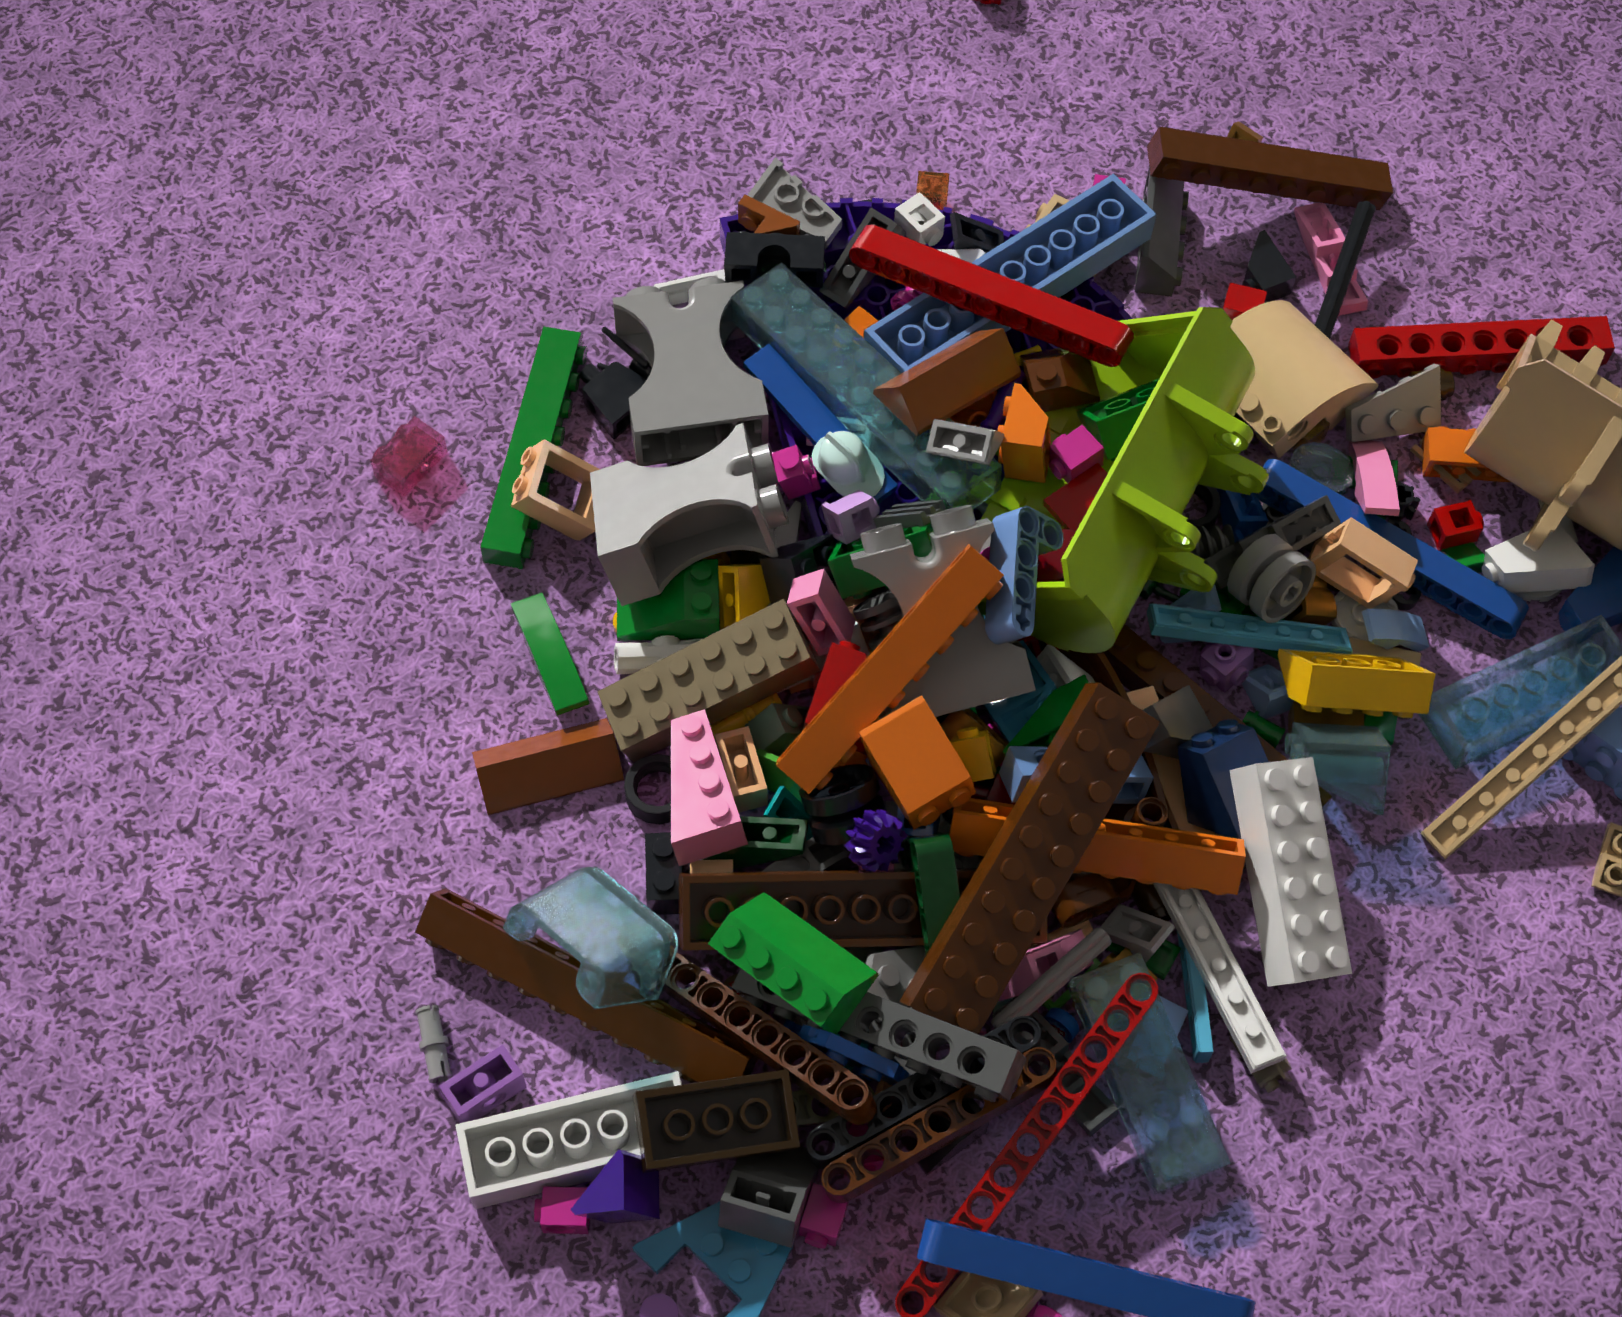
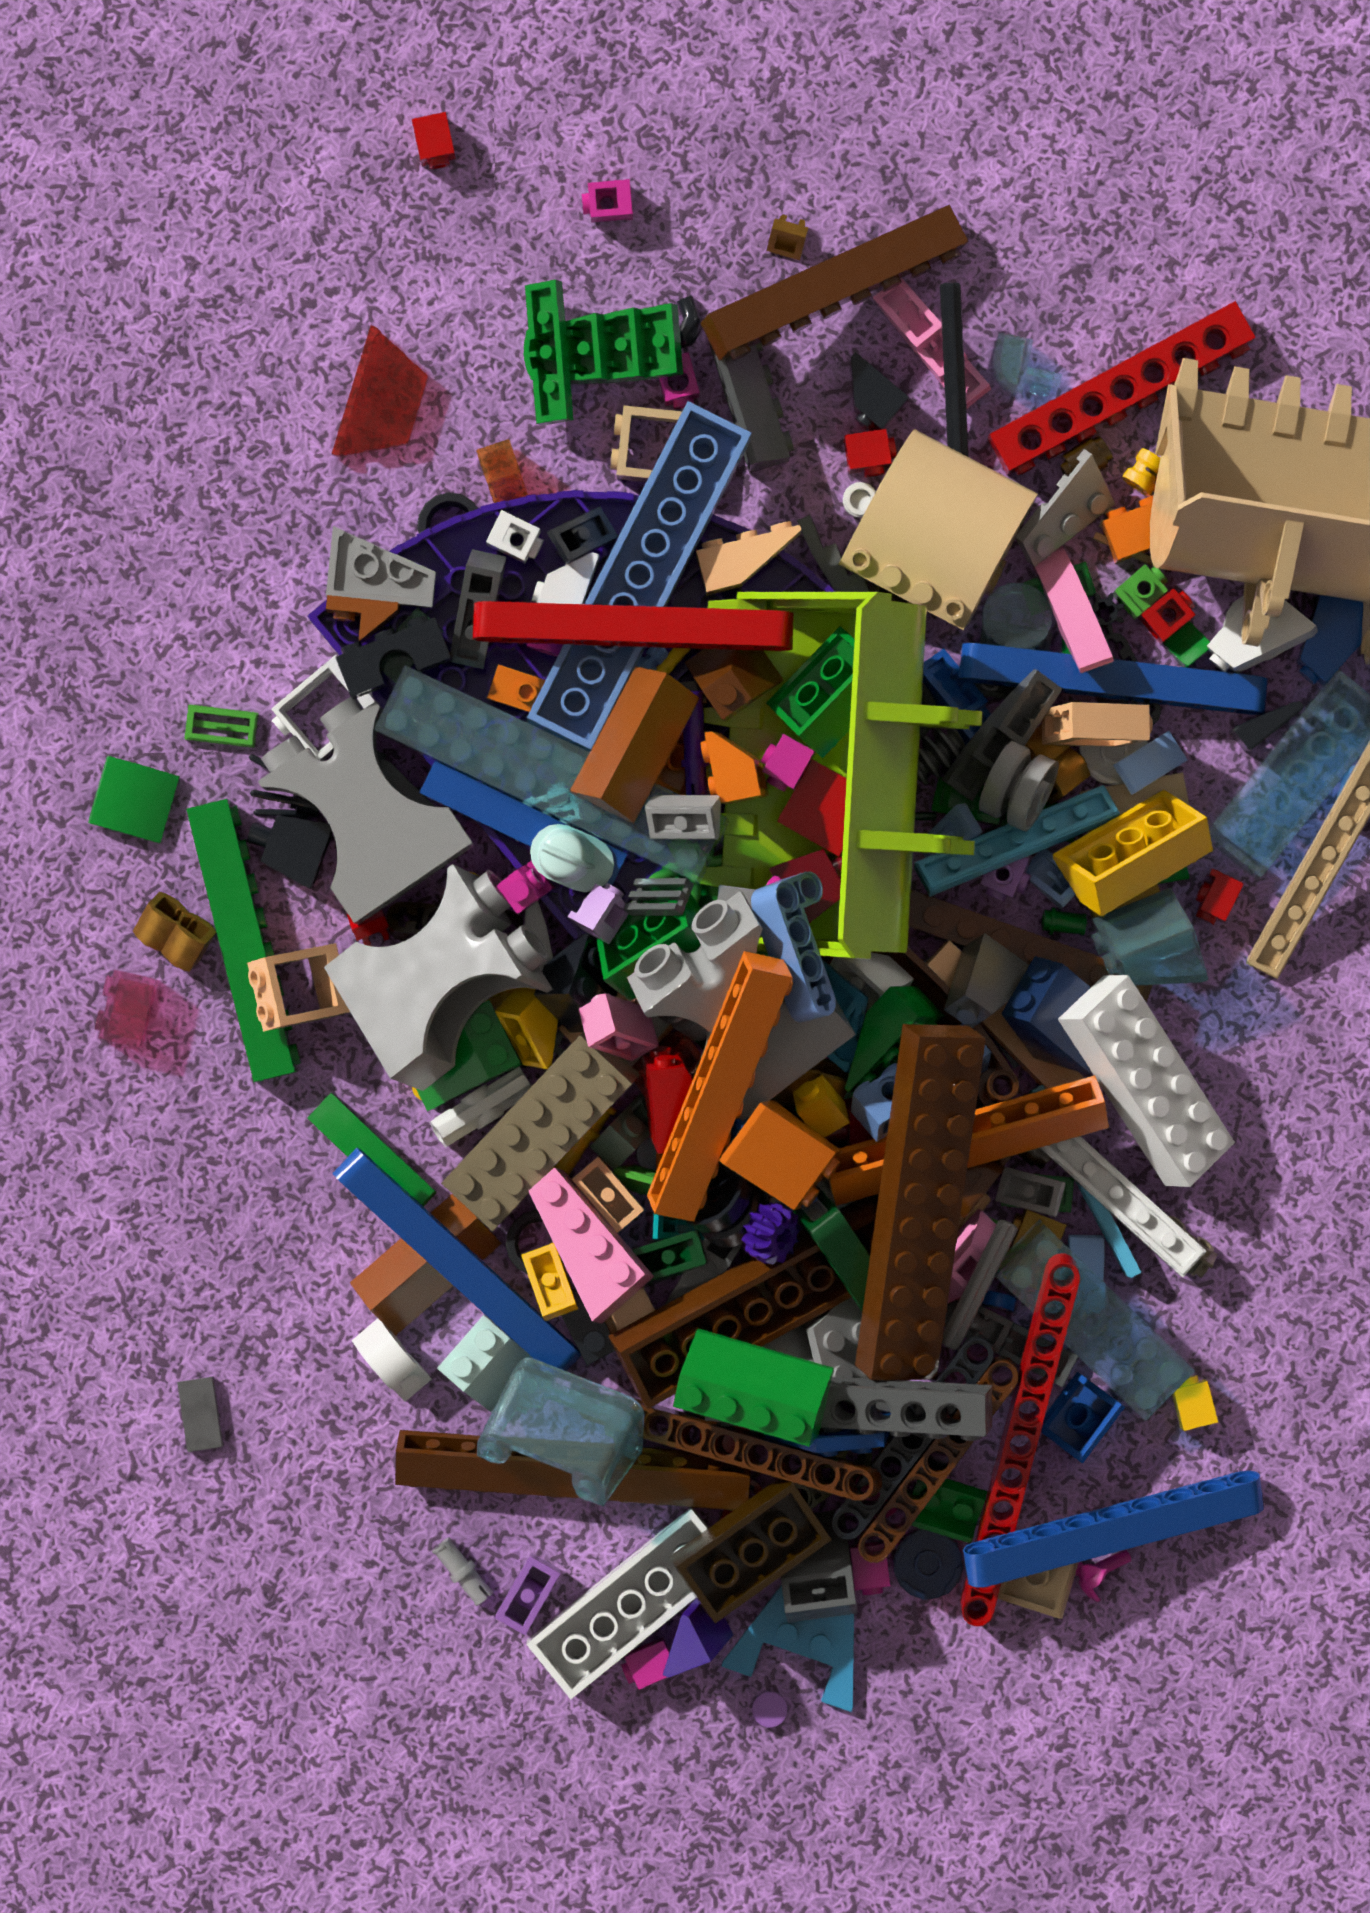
camera: 30 degrees left, 25 degrees up
(277, 802) = (200, 1414): none -> flat silver tile
(472, 828) = (391, 1360): none -> white brick
(481, 413) = (174, 931): none -> pearl gold brick
(505, 313) = (133, 799): none -> green slope
(550, 854) = (483, 1362): none -> light aqua slope
(573, 751) = (455, 1261): none -> blue beam
(579, 290) = (251, 729): none -> bright green tile
(650, 810) = (549, 1282): none -> yellow slope
(858, 127) = (381, 400): none -> clear red wing
(883, 1258) = (922, 1553): none -> dark blue tile
(926, 1191) = (951, 1510): none -> green bracket
(1048, 148) = (593, 348): none -> green slope
(1096, 1169) = (1080, 1417): none -> blue slope
(1108, 66) = (616, 190): none -> dark pink brick
(1115, 302) = (734, 563): none -> light nougat slope
(1136, 170) = (690, 326): none -> black arm
(1214, 1204) = (1194, 1404): none -> yellow brick
(1395, 301) = (1012, 370): none -> clear light blue brick
(1415, 763) = (1217, 897): none -> red brick
(1437, 494) = (1135, 602): none -> bright green brick
(1471, 415) = (1143, 473): none -> yellow wheel
(1501, 644) = (1258, 729): none -> black slope

